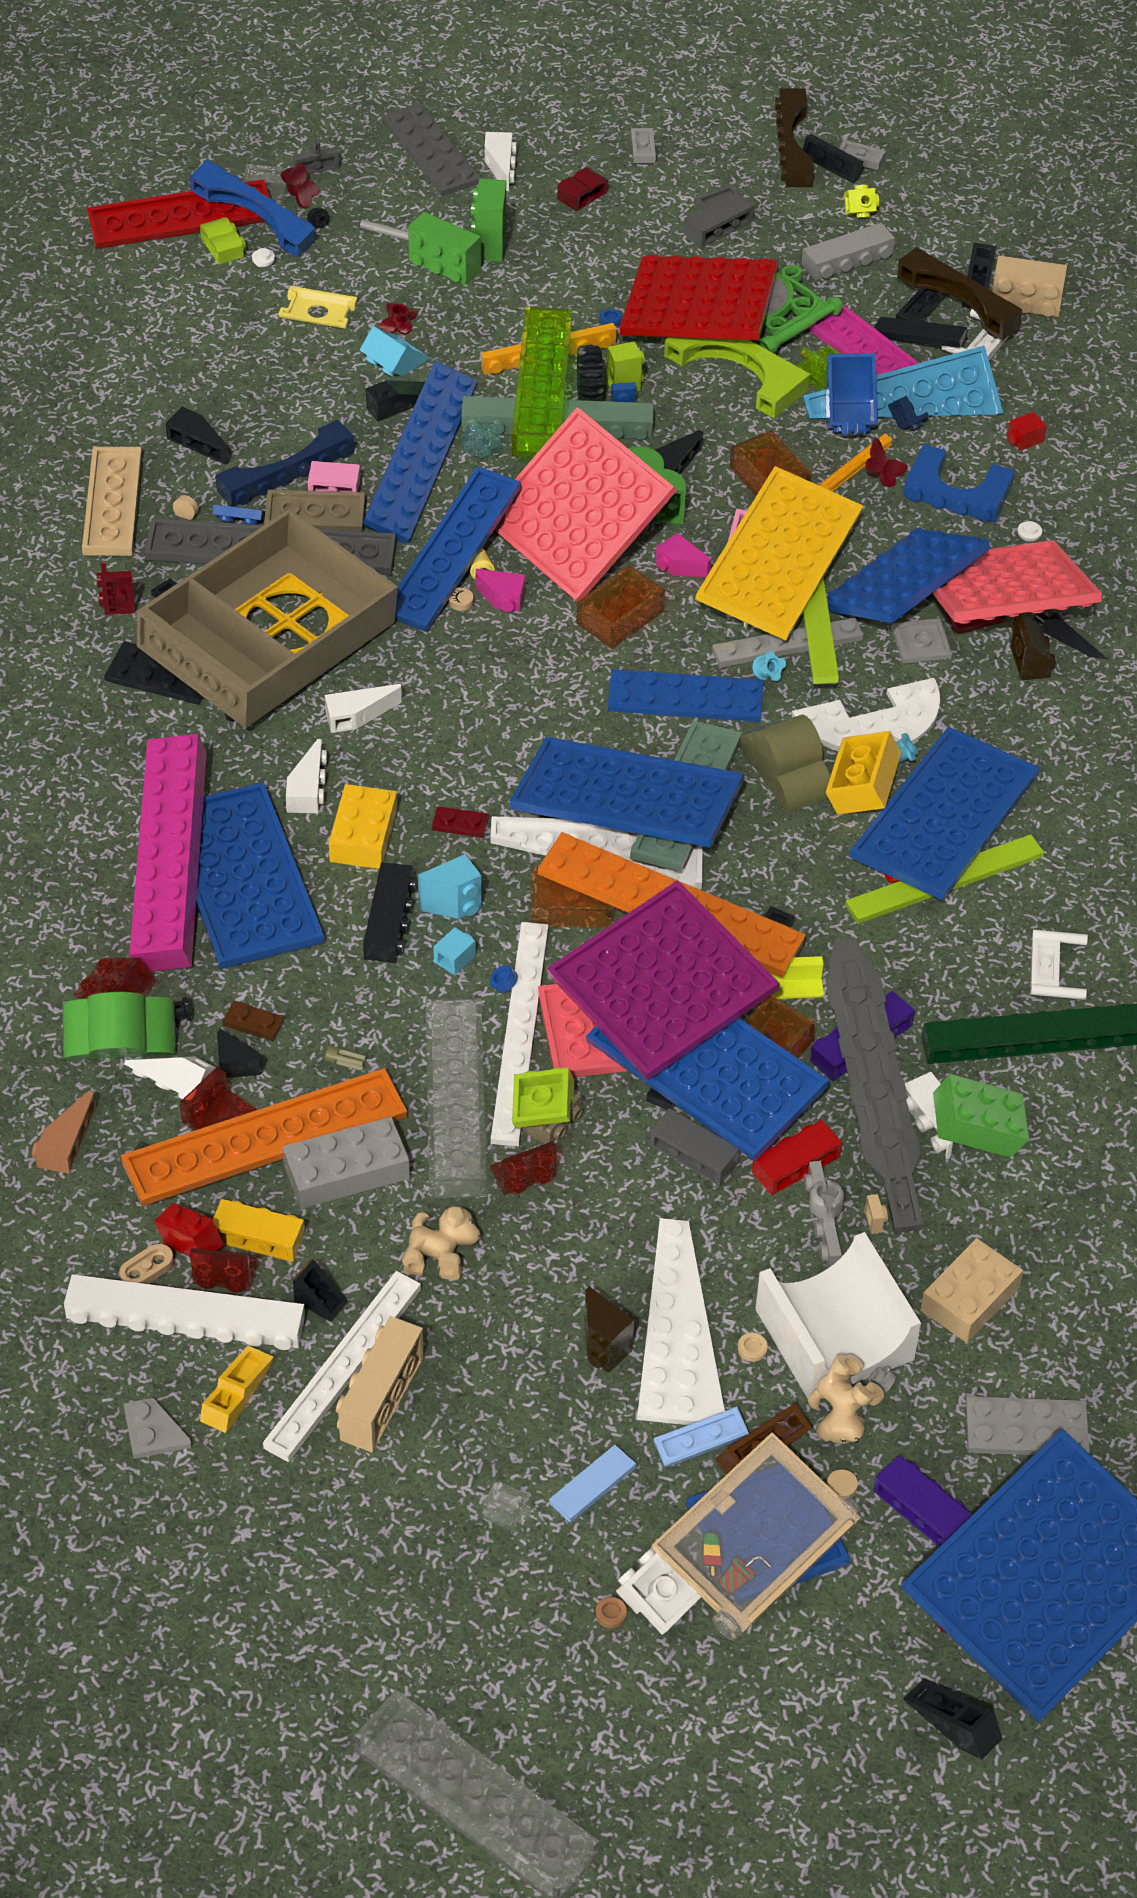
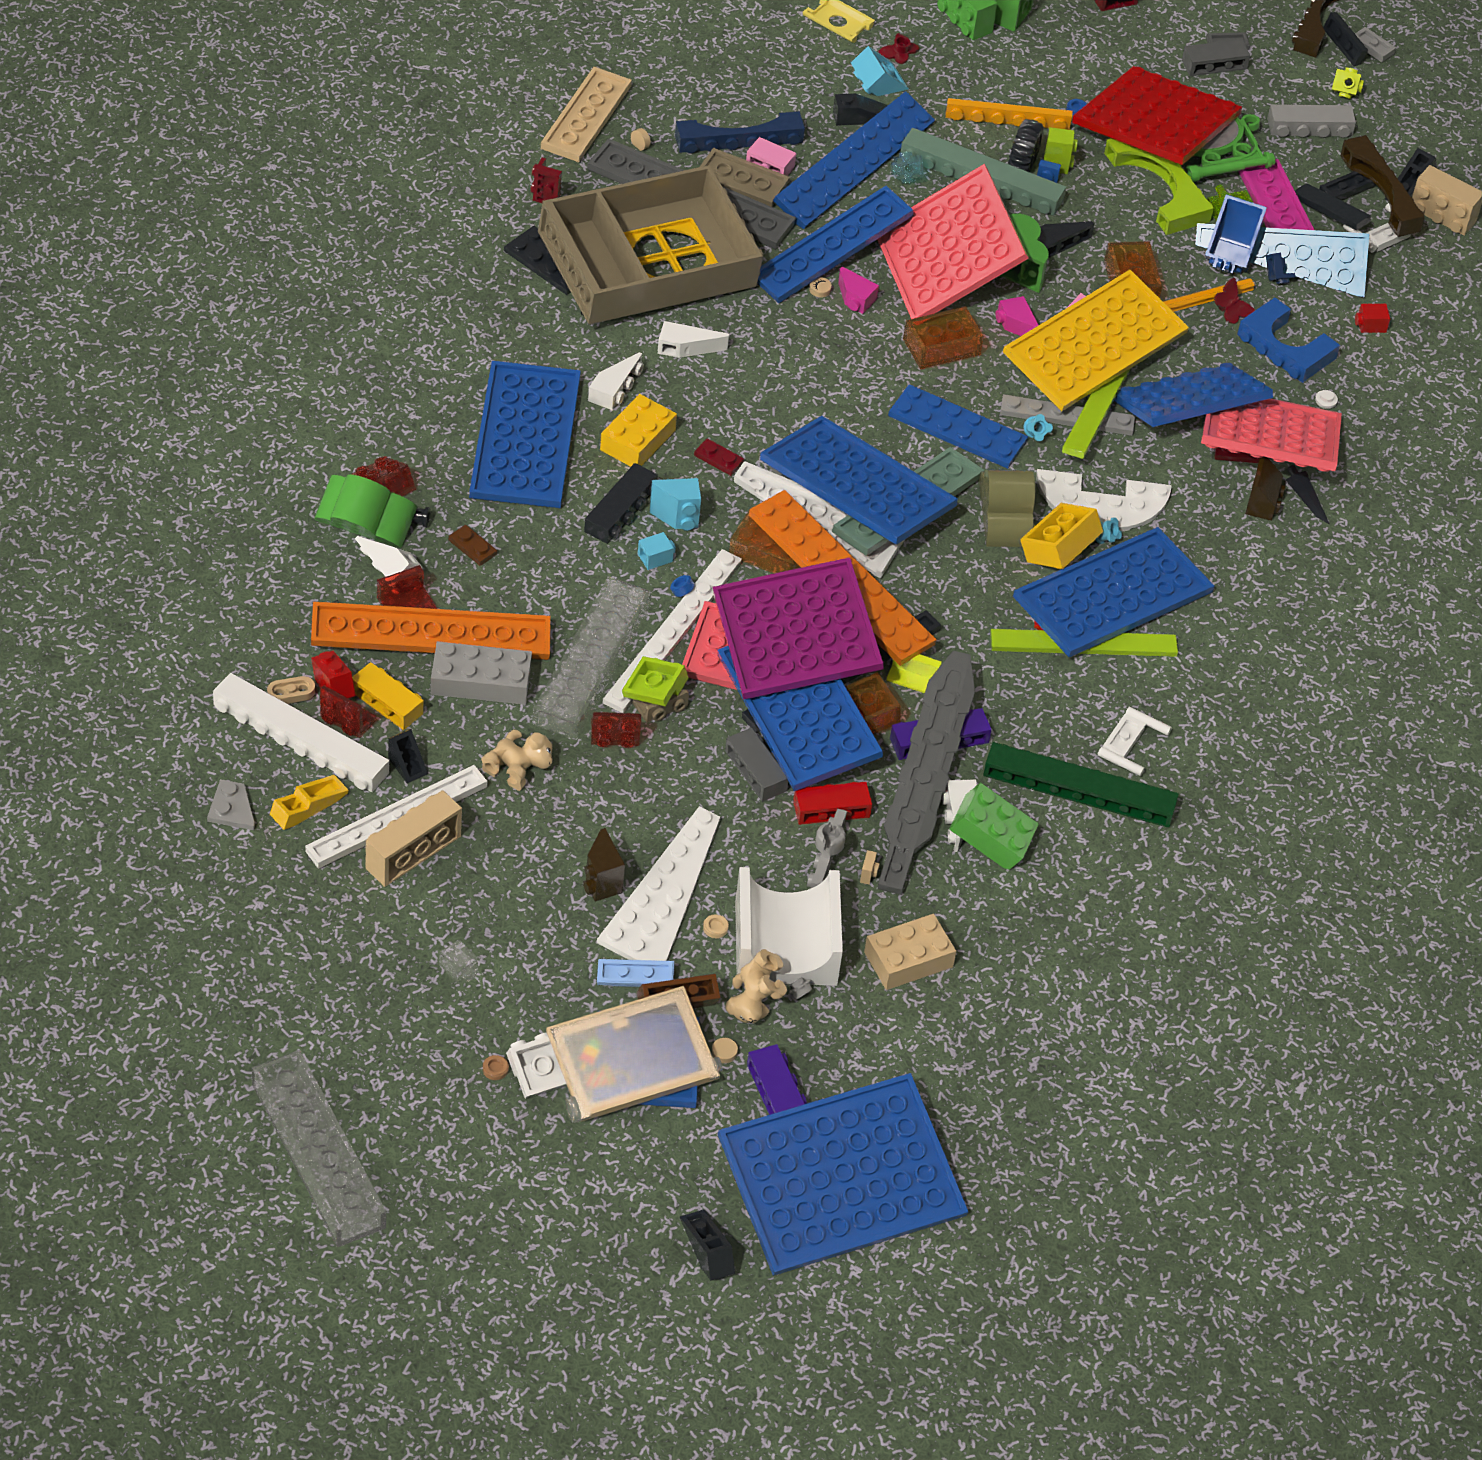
camera: 20 degrees right, 0 degrees up
(64, 1136) = (282, 574): nougat slope -> none
(168, 853) = (474, 395): dark pink brick -> none
(195, 433) = (680, 83): black slope -> none
(228, 513) = (672, 156): plate -> none
(237, 1058) = (441, 566): black slope -> none
(345, 1058) = (526, 598): olive piece -> none
(481, 562) = (853, 263): light yellow cone -> none
(541, 378) = (980, 131): clear neon green brick -> none
(592, 1483) = (535, 973): light blue tile -> none
(921, 640) = (1179, 453): light grey tile -> none
(1022, 1424) = (882, 1059): light grey plate -> none

